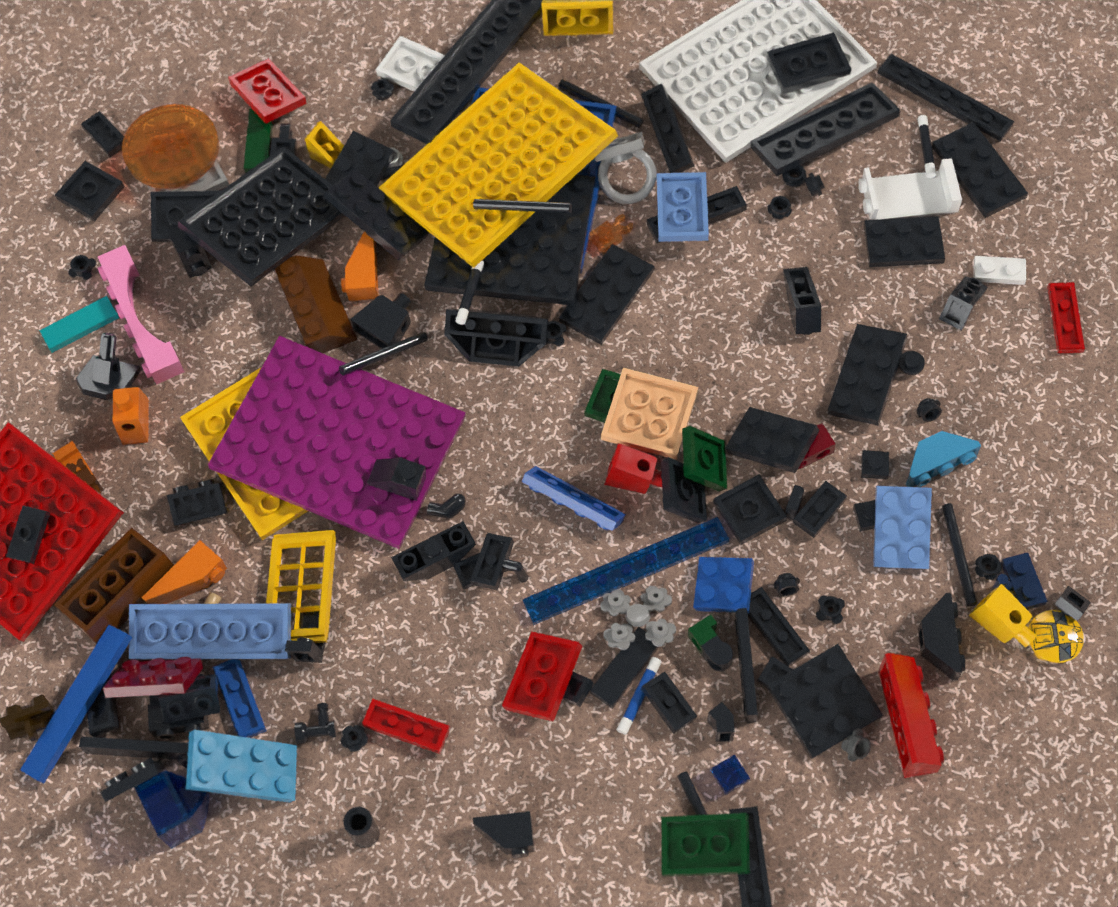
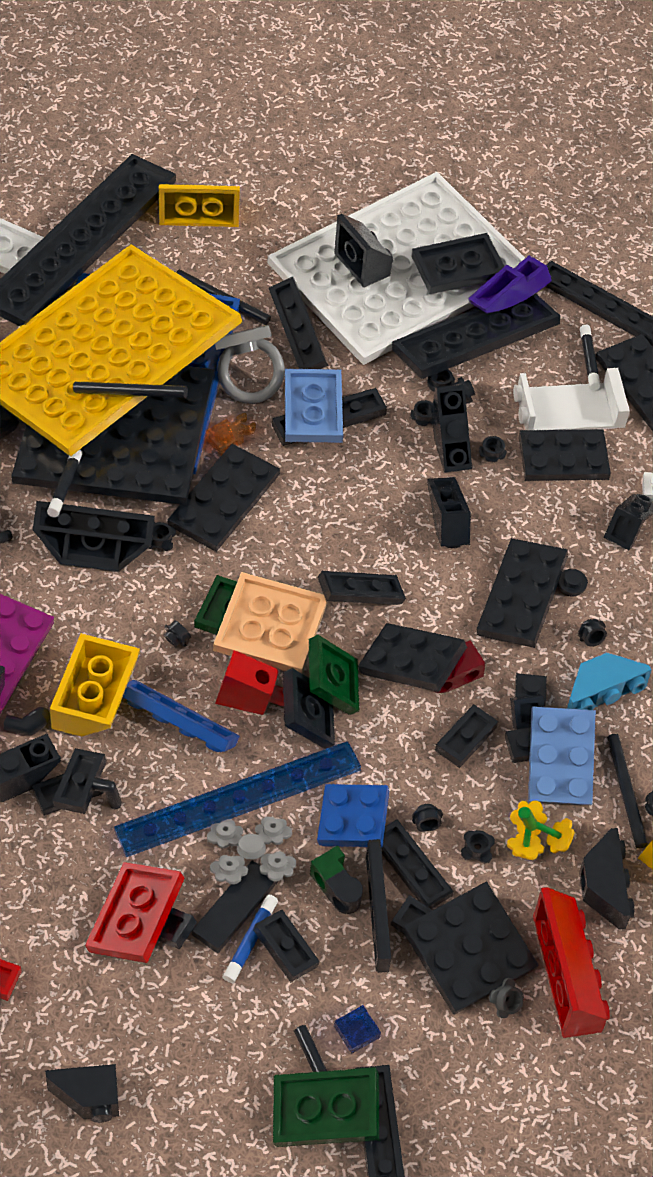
camera: 10 degrees left, 10 degrees down
(500, 475) = (92, 686): none -> yellow slope
(569, 423) = (176, 634): none -> black plate
(722, 56) = (361, 251): none -> black slope
(722, 721) = (348, 968): black piece -> none
(727, 376) = (361, 587): none -> black tile
(750, 509) = (385, 734): black plate -> none
(794, 502) = (437, 726): black tile -> none
(804, 223) = (451, 428): none -> black slope
(840, 233) = (493, 443): none -> black plate
(856, 83) = (511, 285): none -> dark purple slope
(867, 484) = (522, 707): none -> black plate
(874, 585) = (530, 823): none -> yellow plant

